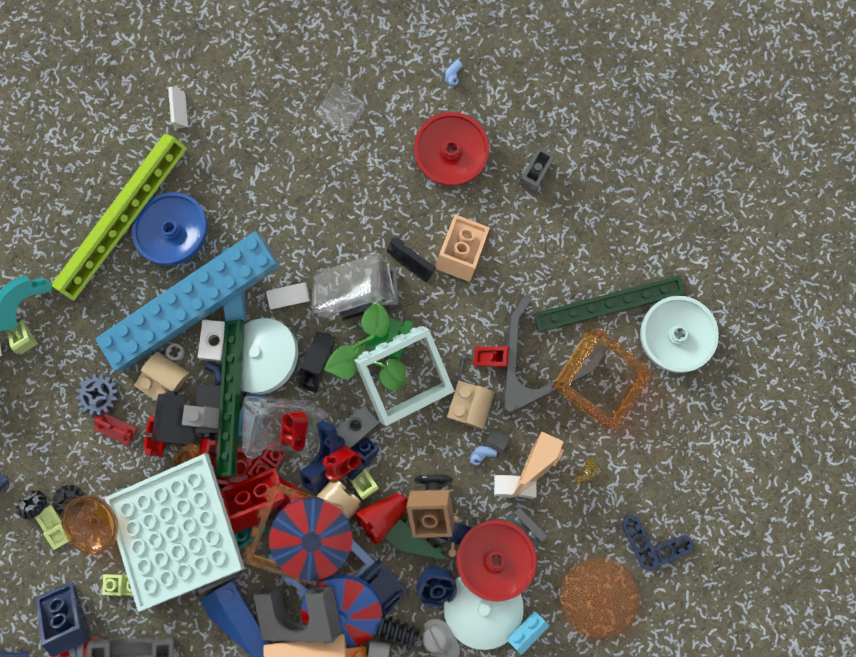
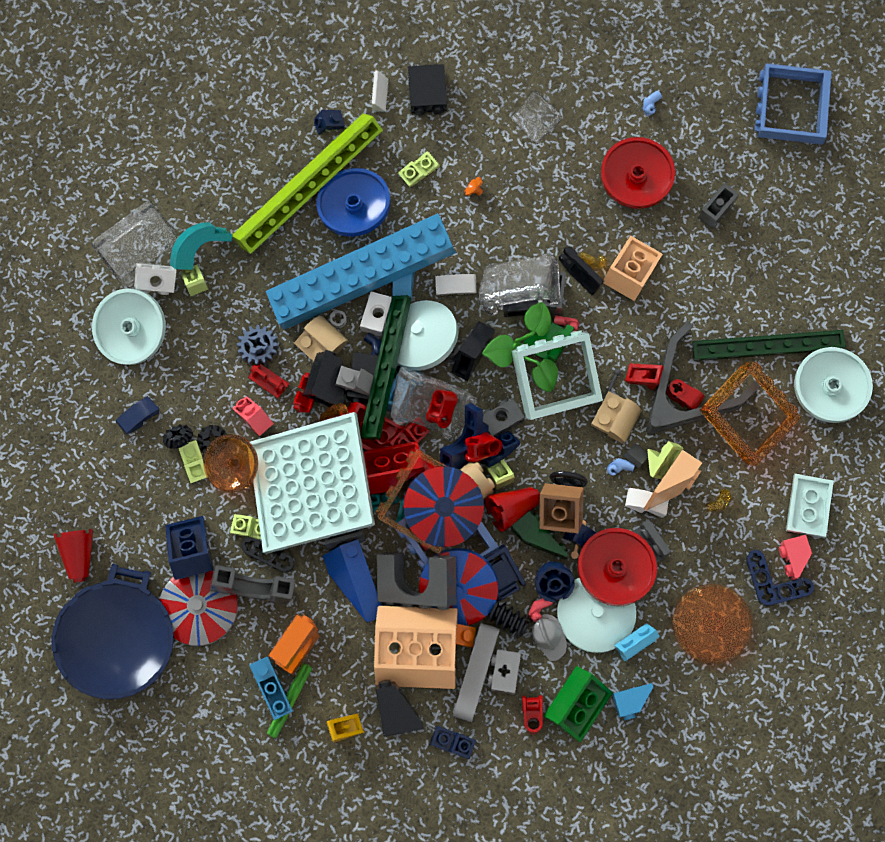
camera: 15 degrees right, 5 degrees down
(104, 469) = (253, 415): none -> coral slope
(131, 146) = (329, 120): none -> dark blue bracket
(157, 619) = (252, 553): none -> black beam
(225, 97) = (427, 89): none -> black brick
(231, 182) = (419, 169): none -> yellowish green slope
(290, 191) = (474, 187): none -> orange plant
(405, 314) = (563, 321): none -> coral arm
(420, 247) = (593, 261): none -> clear yellow arm
(422, 616) = (534, 612): none -> coral arm
(523, 442) = (661, 462): none -> yellowish green slope
(538, 370) = (686, 395): none -> red piece
(618, 18) = (795, 73): none -> medium blue window
(672, 512) = (798, 553): none -> coral slope
(675, 460) = (809, 506): none -> light aqua plate

